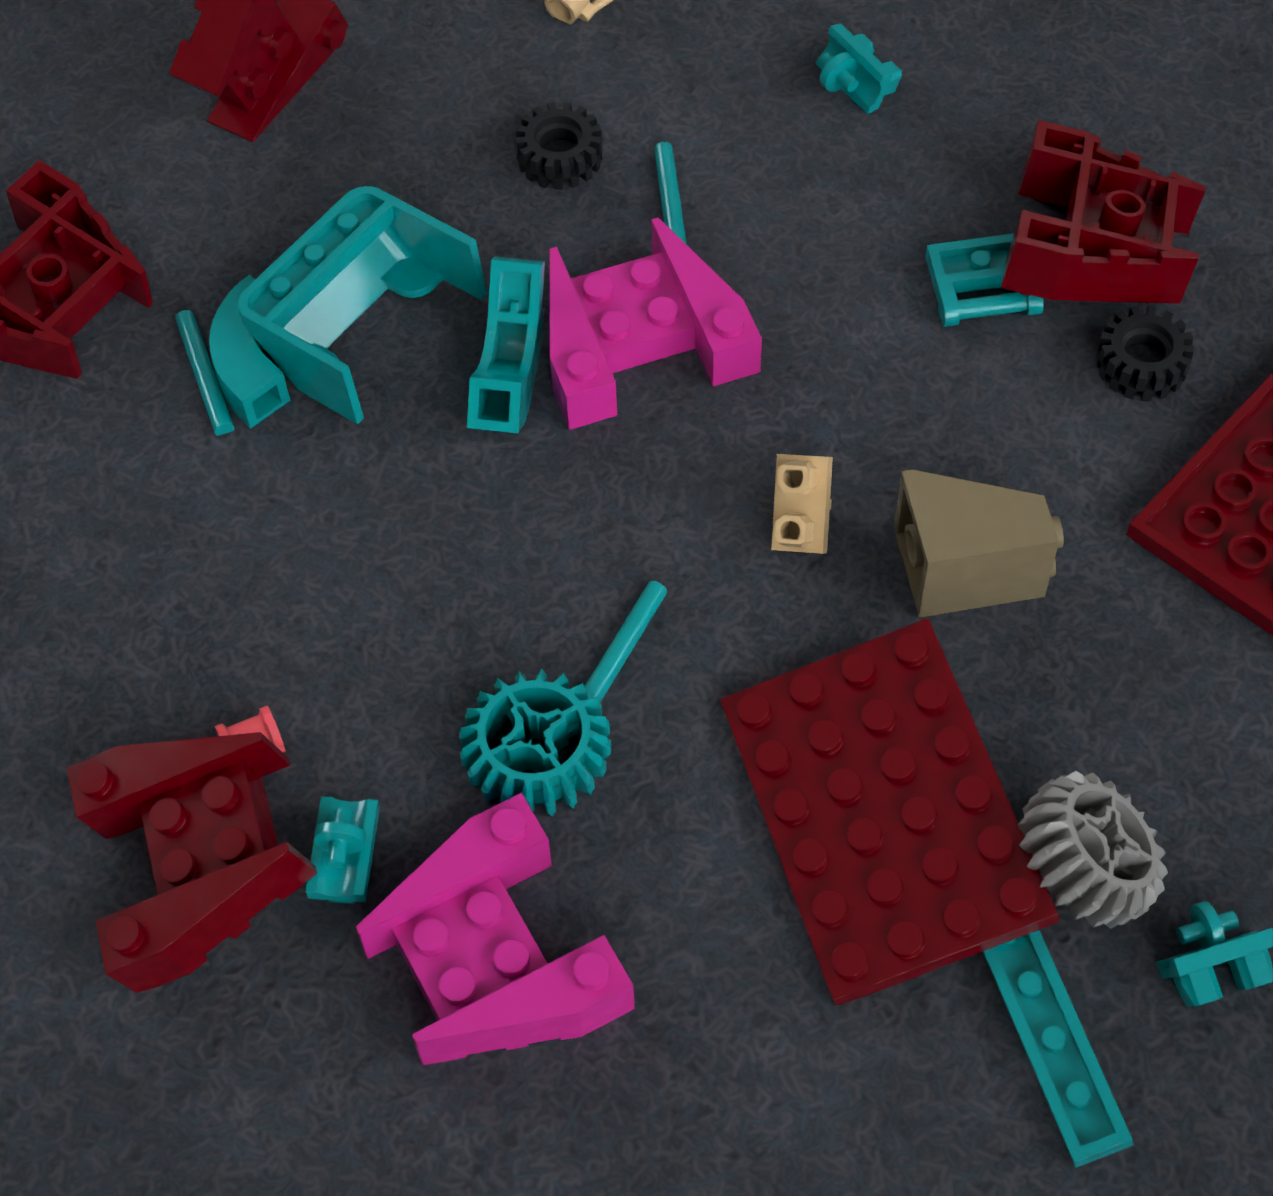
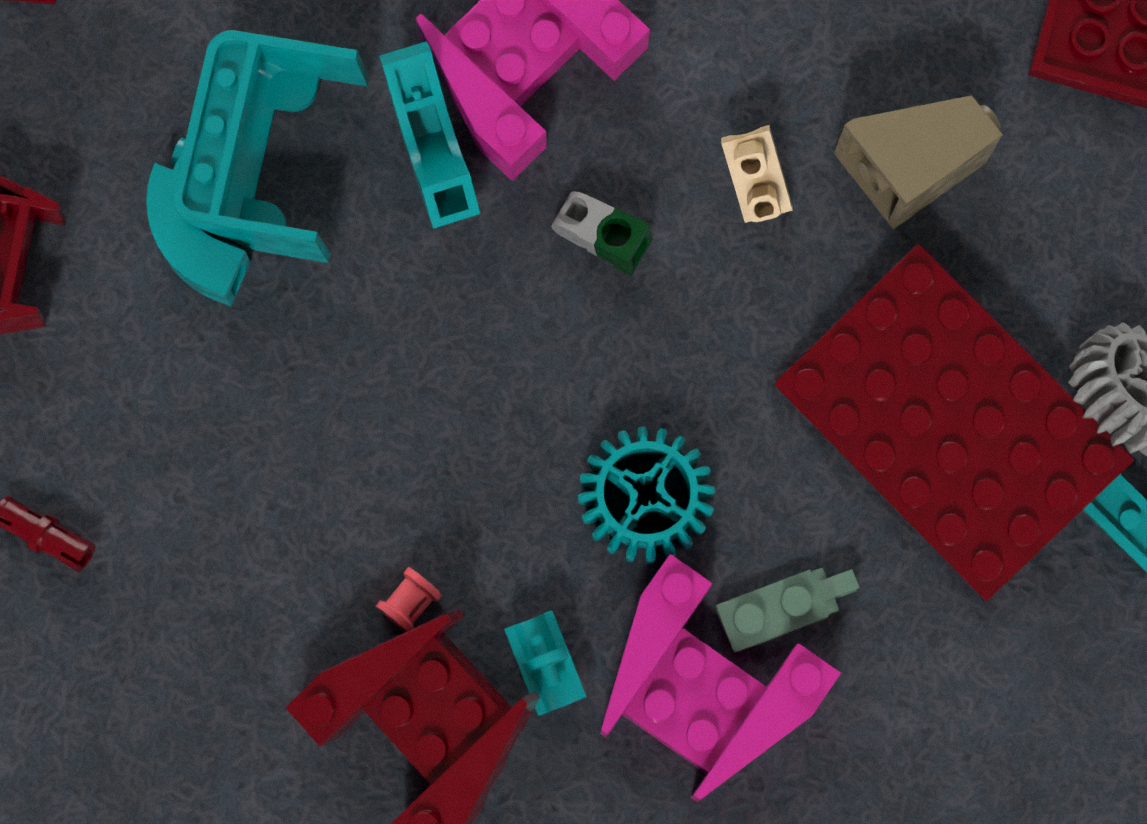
camera: 30 degrees left, 20 degrees up
(204, 373) = (158, 270): teal bar -> none
(619, 911) = (782, 607): none -> sand green hinge
(625, 640) = (666, 368): teal bar -> none
(629, 500) = (603, 231): none -> leg

